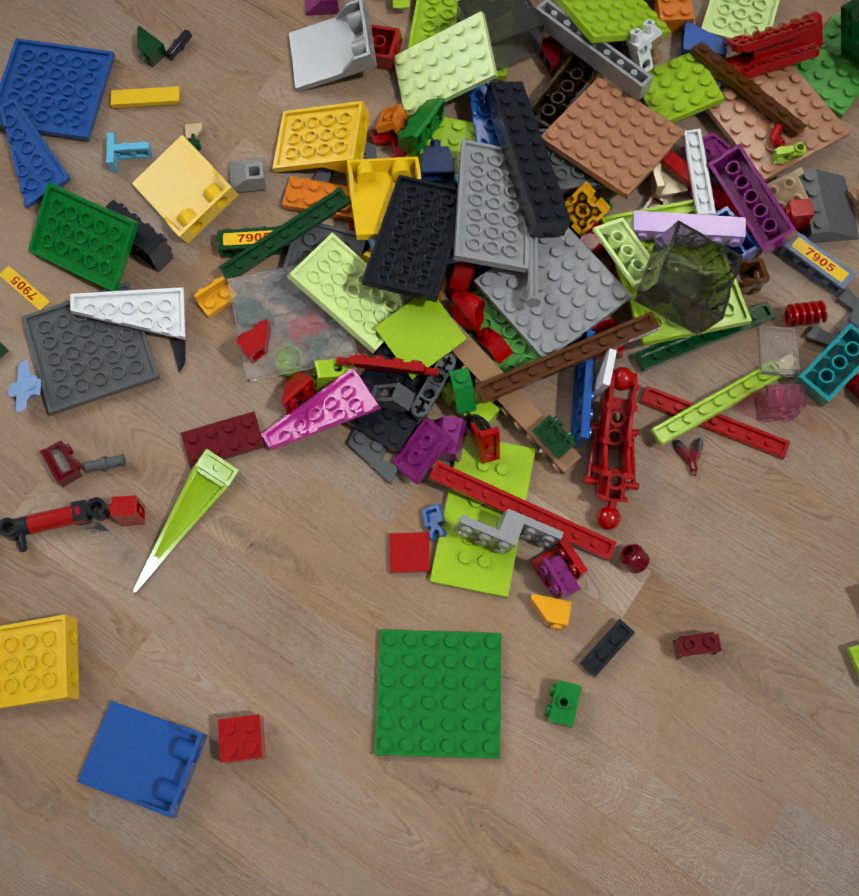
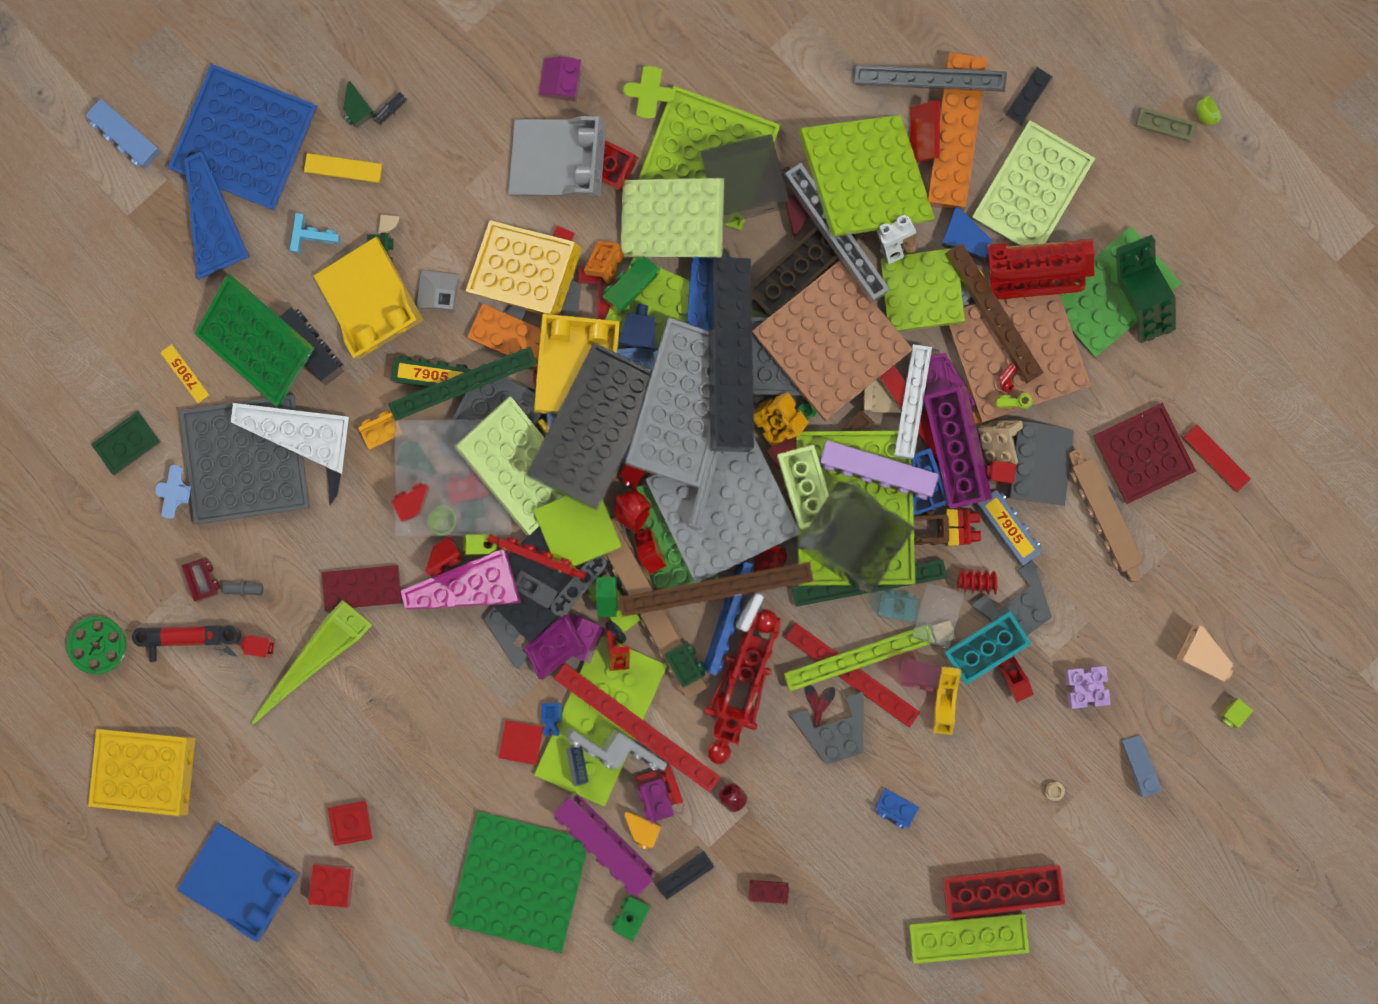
camera: 10 degrees right, 15 degrees up
(251, 670) = (350, 823): none -> red plate
(471, 559) = (577, 765): none -> slope
(520, 630) = (605, 843): none -> magenta brick
(721, 481) = (839, 738): none -> dark grey wing
(739, 351) = (887, 609): none -> clear light blue brick
(778, 275) = (962, 519): none -> red hips
(796, 537) = (896, 808): none -> blue bracket
(810, 424) = (945, 701): none -> yellow arch

